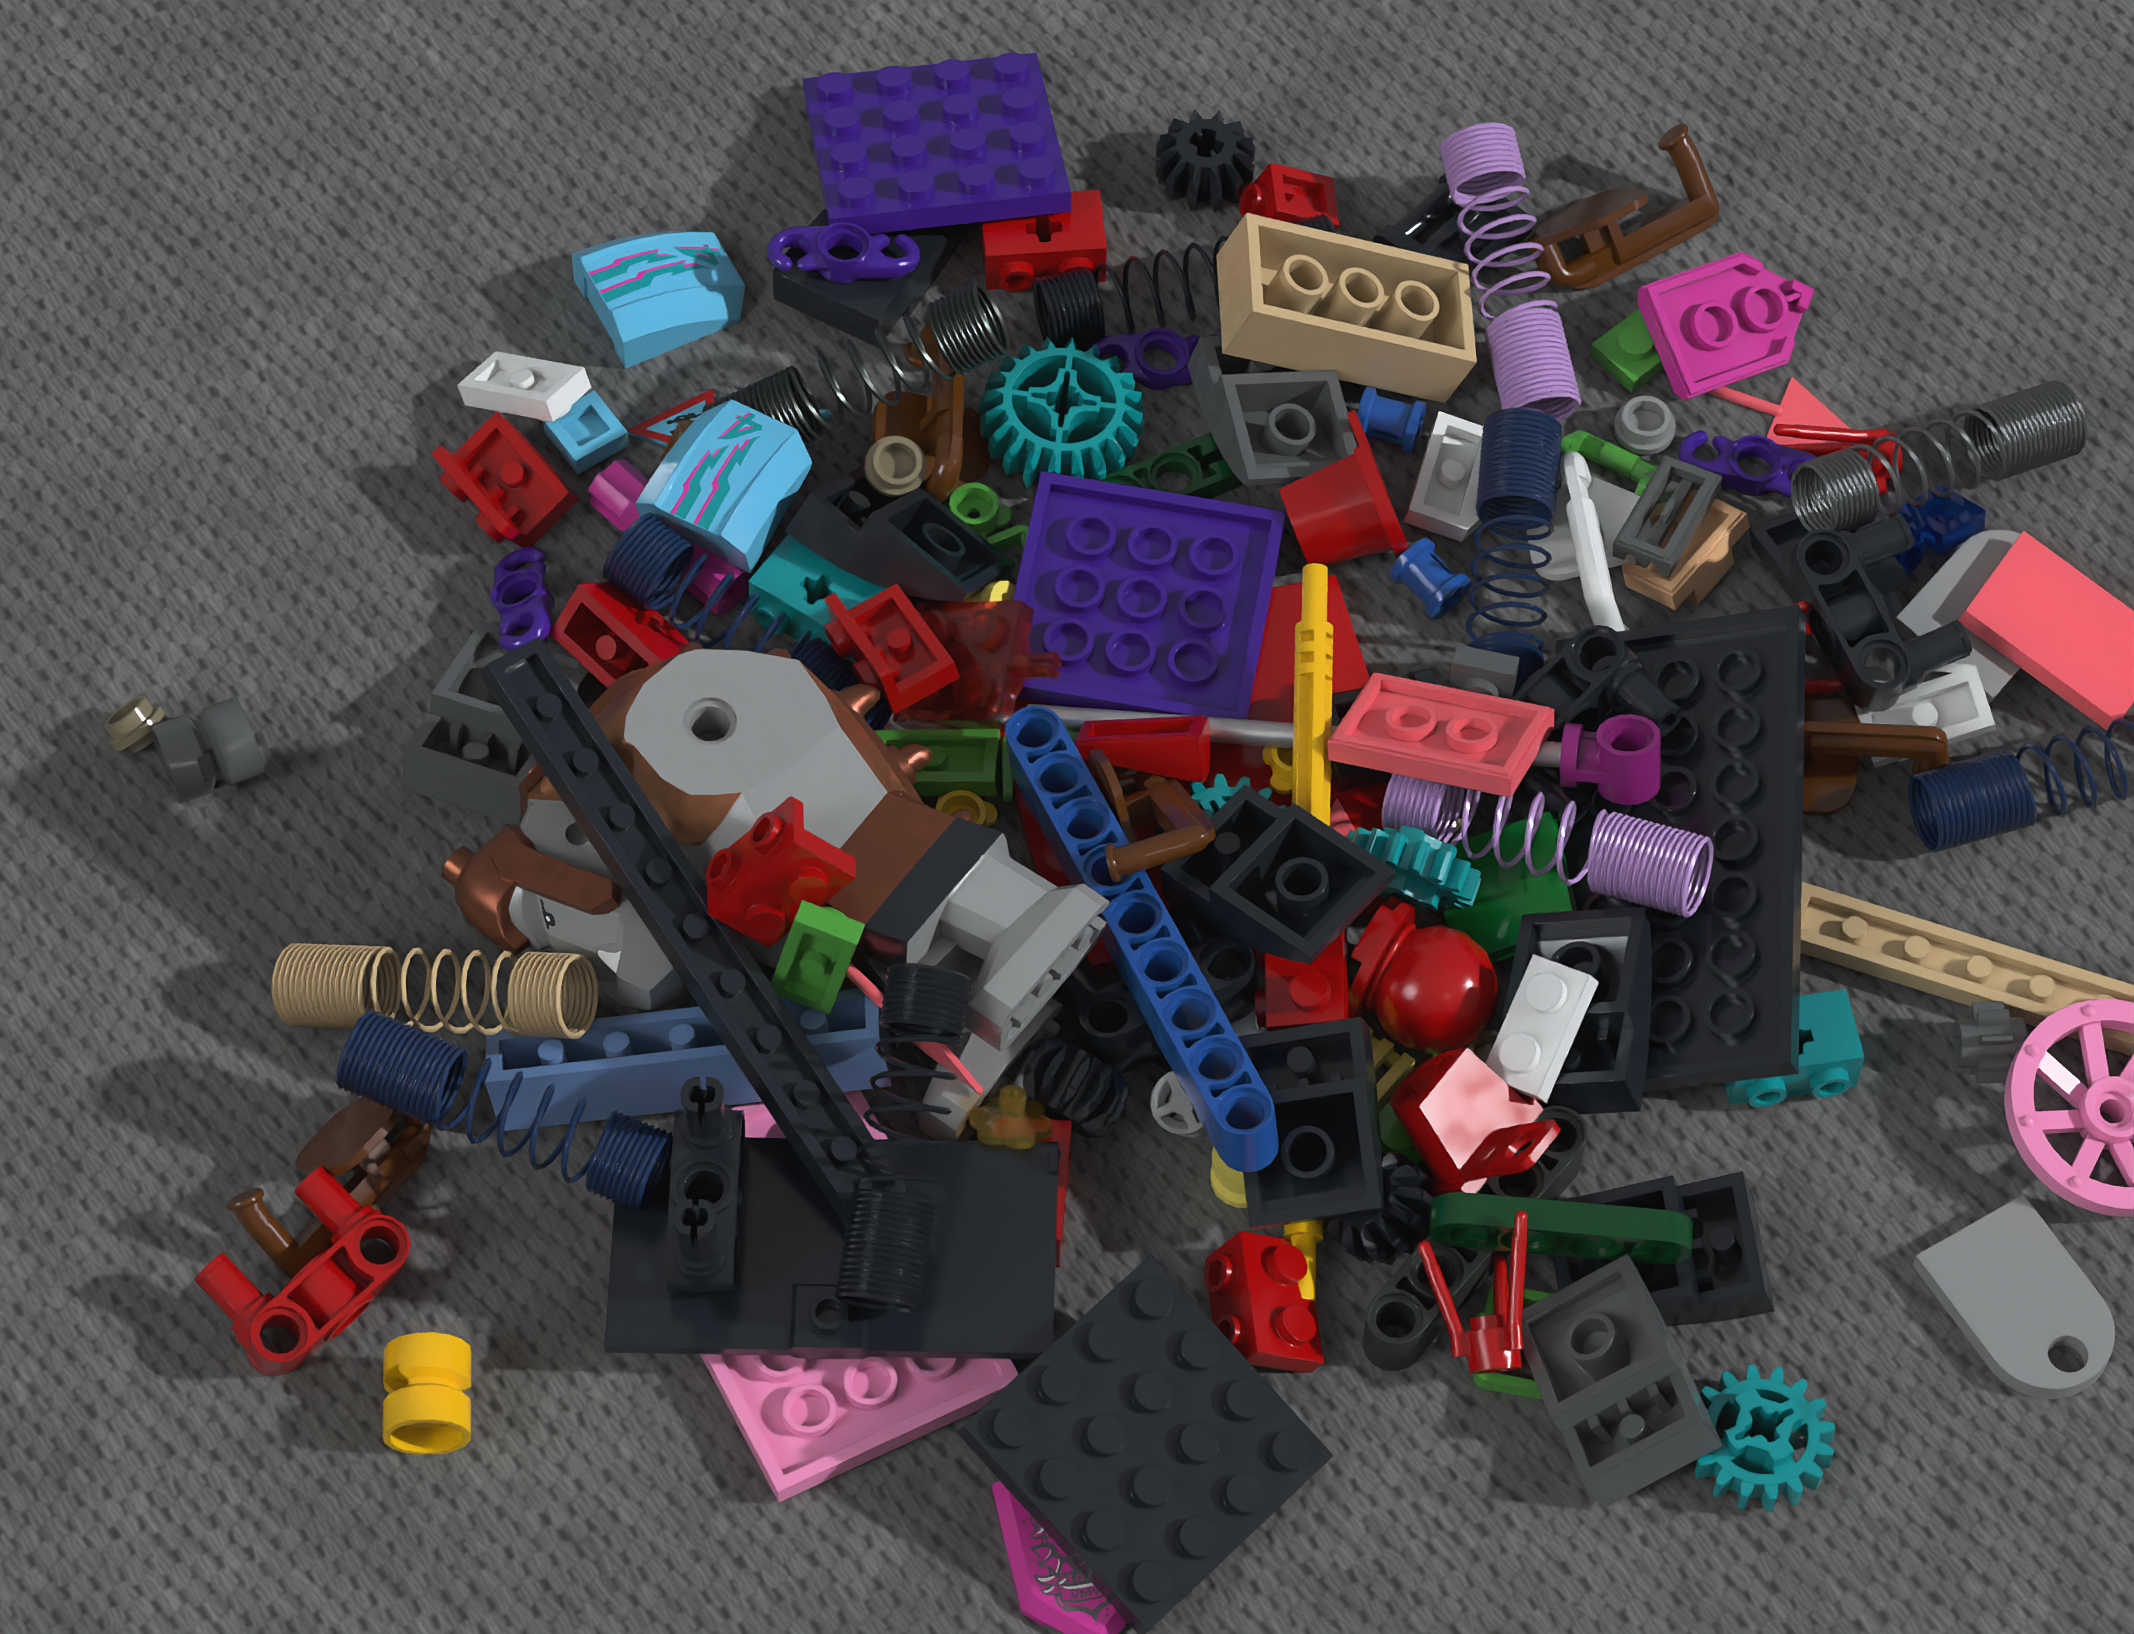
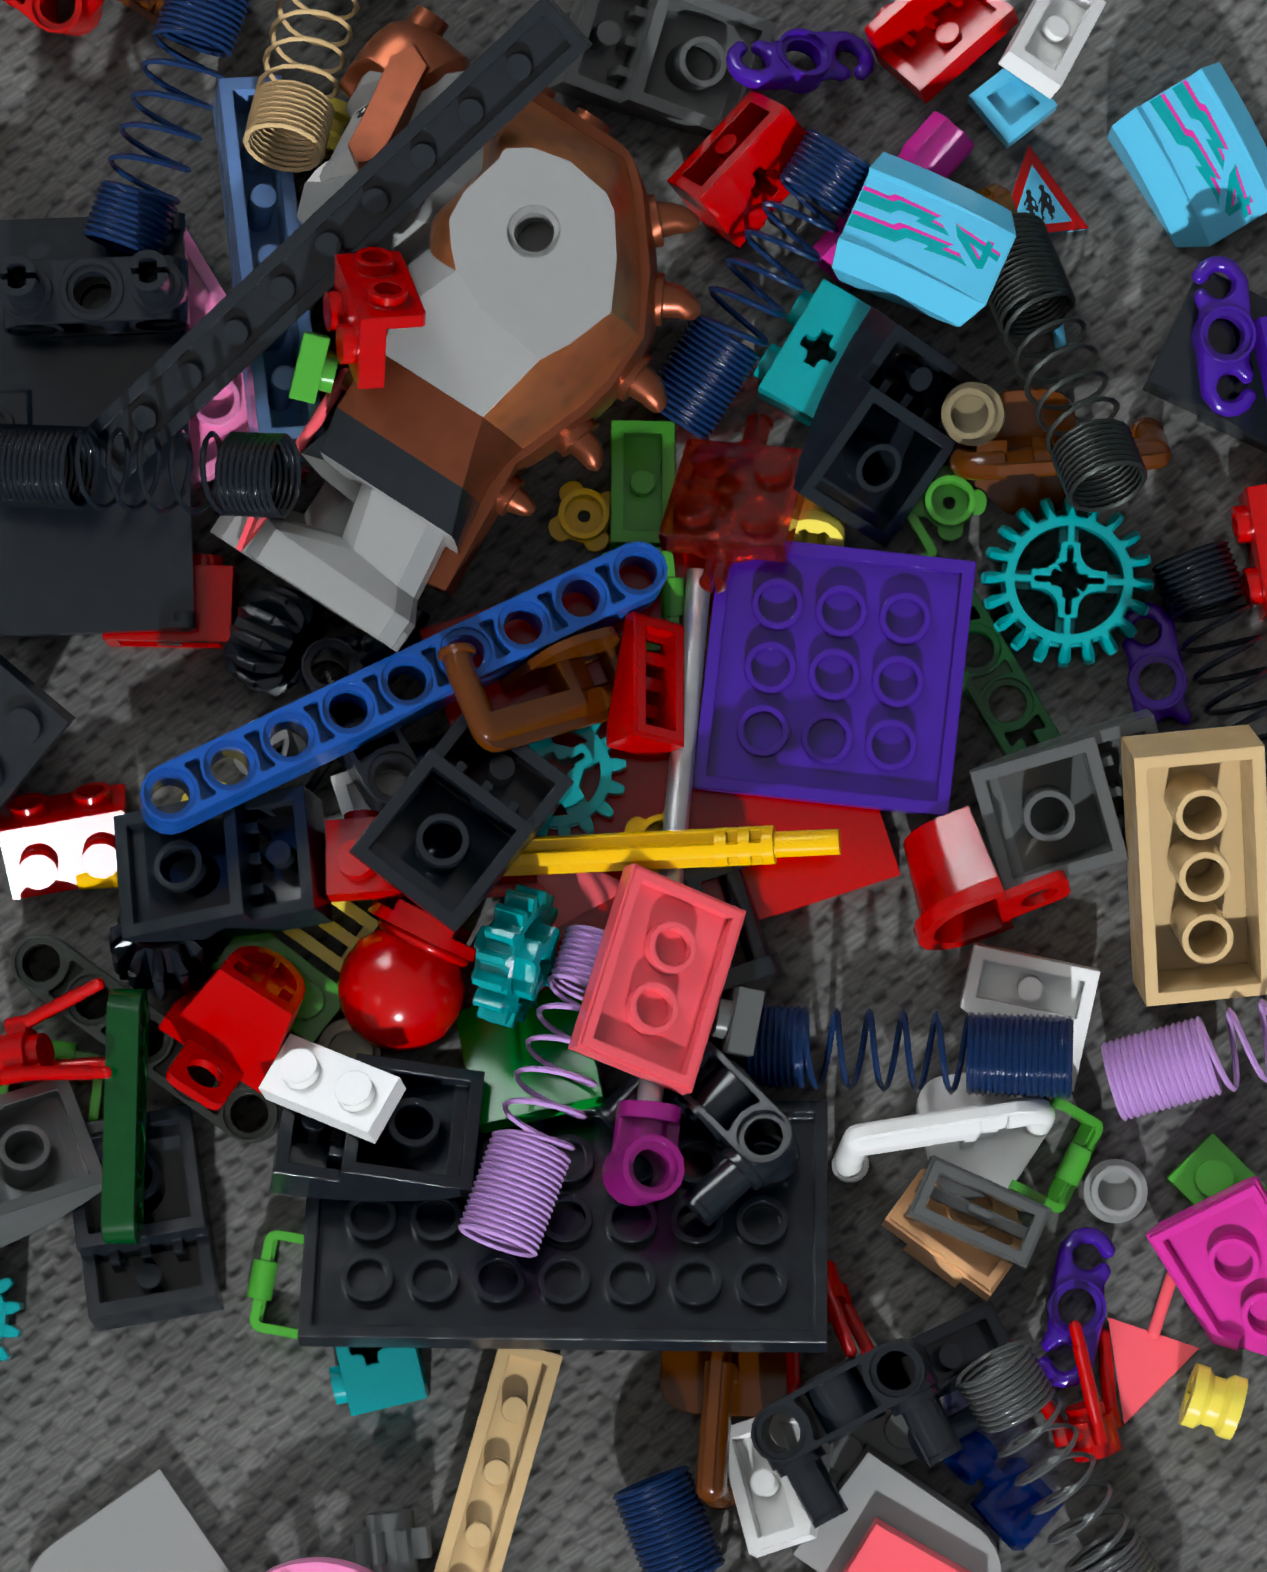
camera: 90 degrees right, 25 degrees up
(890, 647) = (732, 420): red bracket -> none
(1011, 1120) = (206, 583): clear yellow plant -> none
(1391, 419) = (1094, 922): blue bush -> none
(1430, 578) = (899, 971): blue bush -> none
(1724, 1156) = (263, 1280): none -> bright green piece
(1843, 357) = (1213, 1401): none -> light yellow wheel

